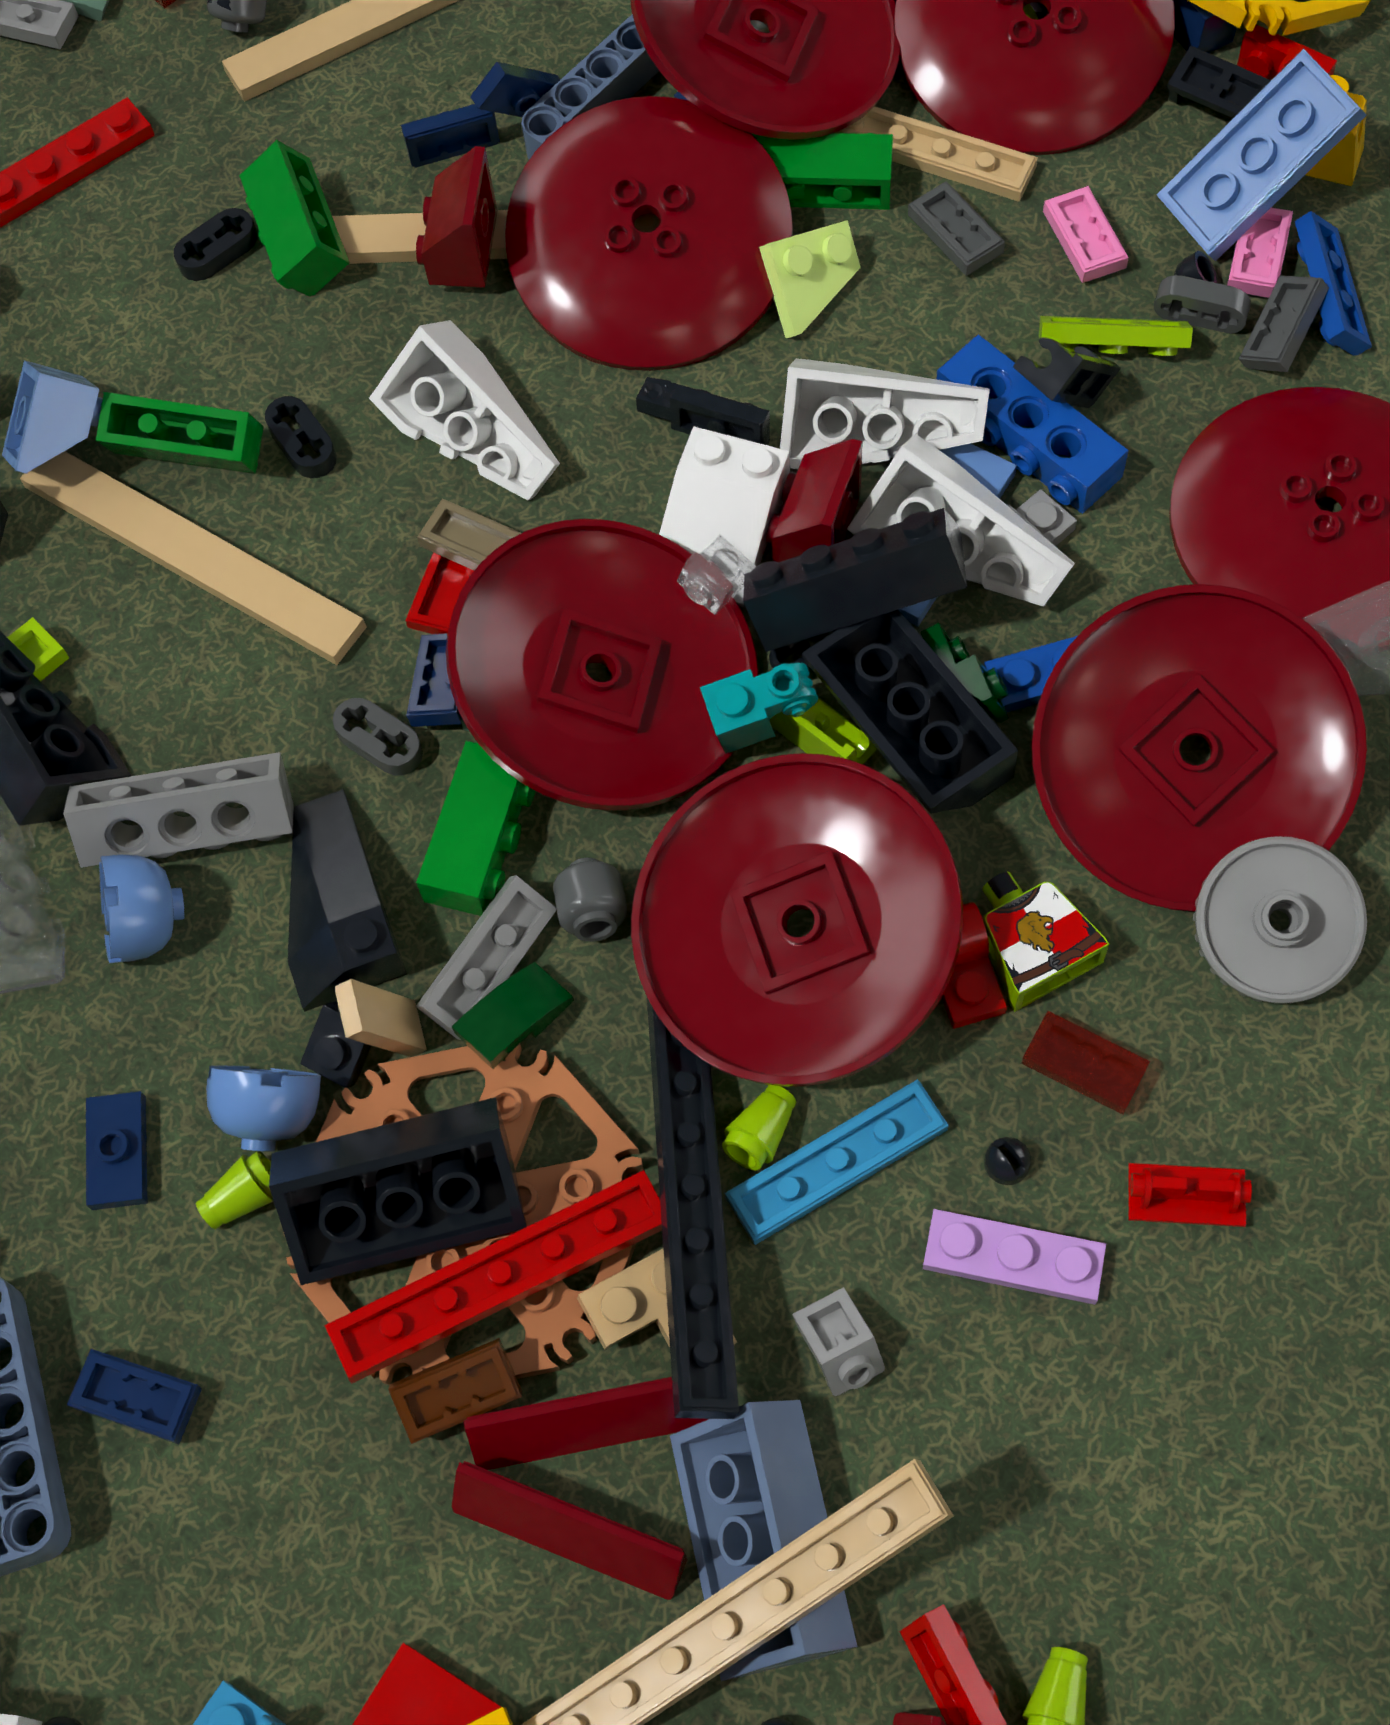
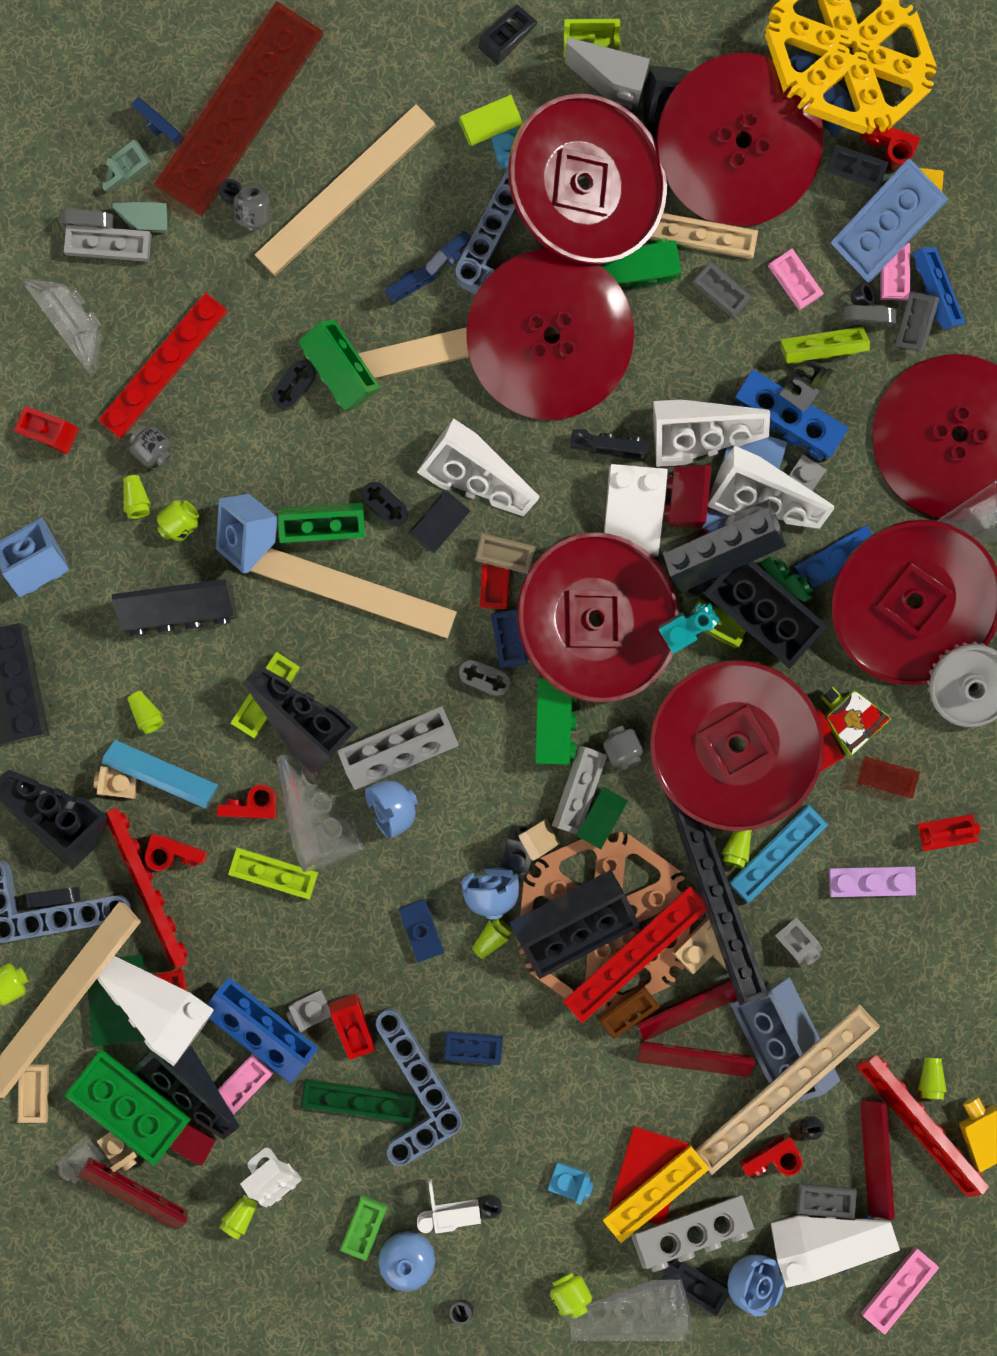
camera: 25 degrees left, 20 degrees up
(335, 906) = (493, 783): black wedge -> none
(376, 470) = (439, 521): none -> black hinge
(459, 223) = (441, 355): dark red slope -> none
(715, 574) = (644, 550): clear bracket -> none
(809, 272) = (646, 340): yellowish green wing -> none
(1000, 1166) = (856, 839): black hinge -> none

